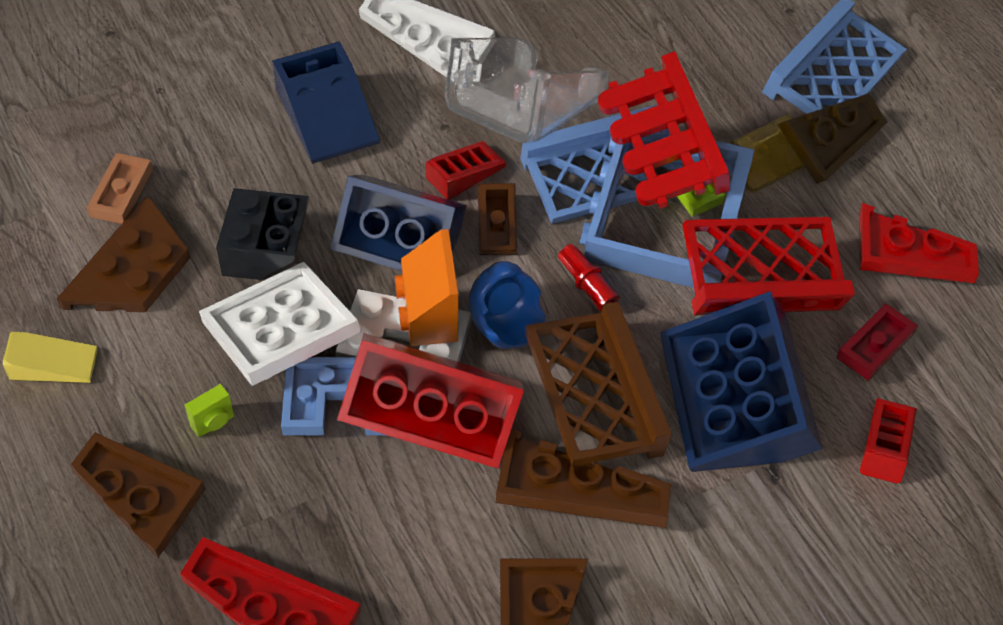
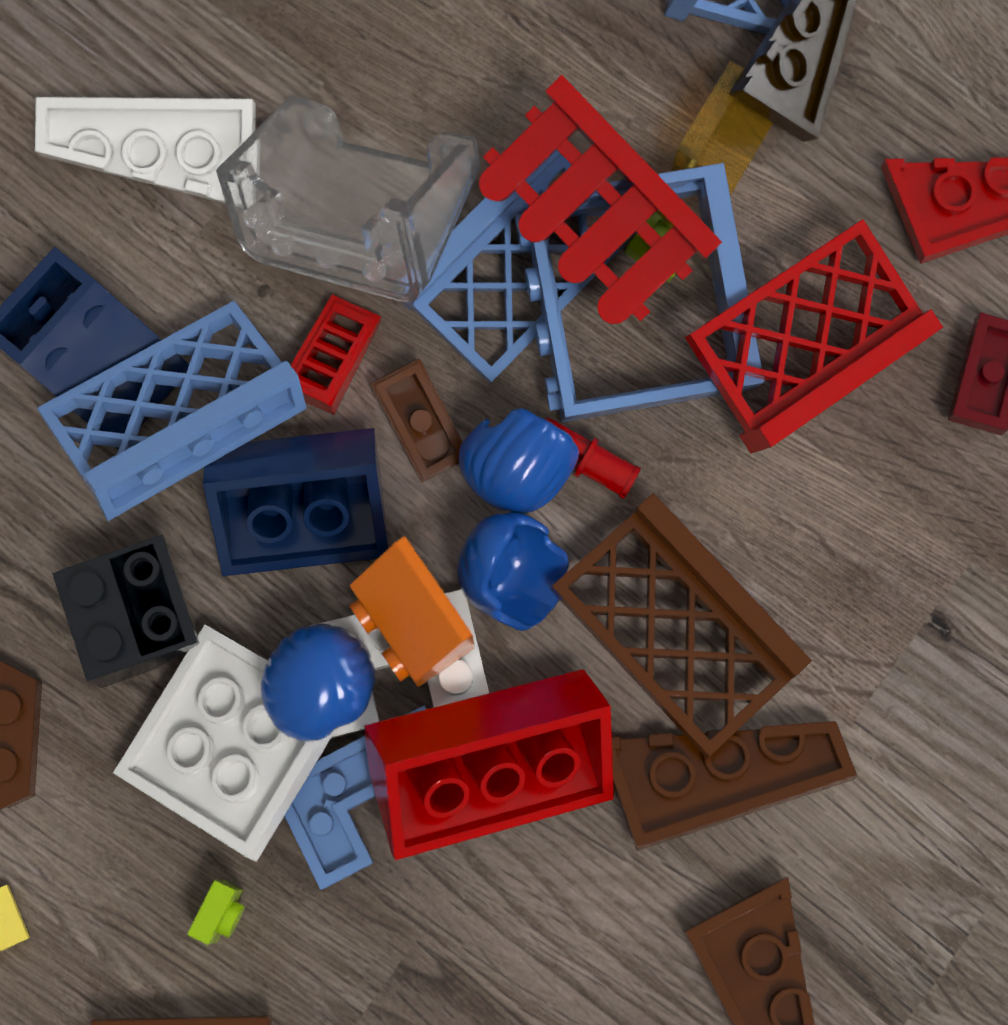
camera: 25 degrees left, 25 degrees up
(351, 298) = (317, 681): none -> blue piece
(366, 153) = (193, 435): none -> medium blue fence
(545, 249) = (517, 461): none -> blue piece
(739, 387) = (852, 533): dark blue slope -> none

